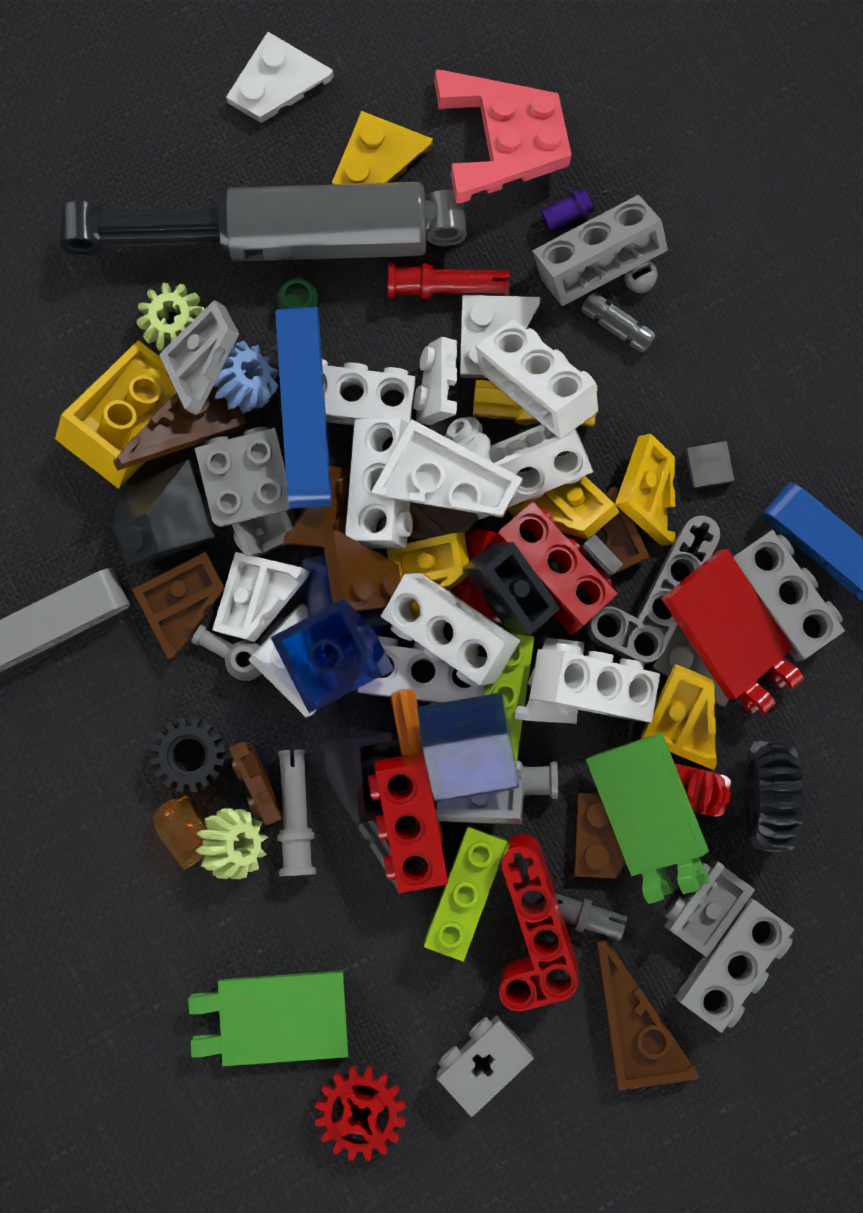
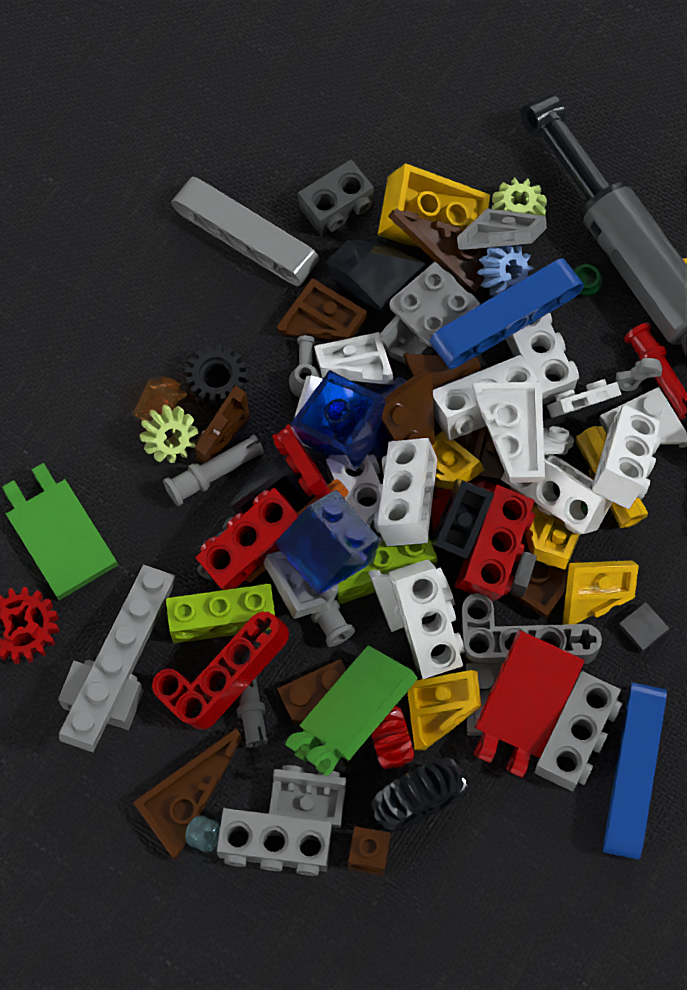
camera: 65 degrees right, 15 degrees down
(37, 511) = (331, 192): none -> dark grey brick
(354, 721) = (301, 462): none -> red hinge
(439, 303) = (644, 369): none -> light grey piece
(461, 1031) = (117, 659): none -> light grey plate
(688, 1033) = (203, 833): none -> clear light blue bush
(797, 875) = (369, 851): none -> reddish brown brick

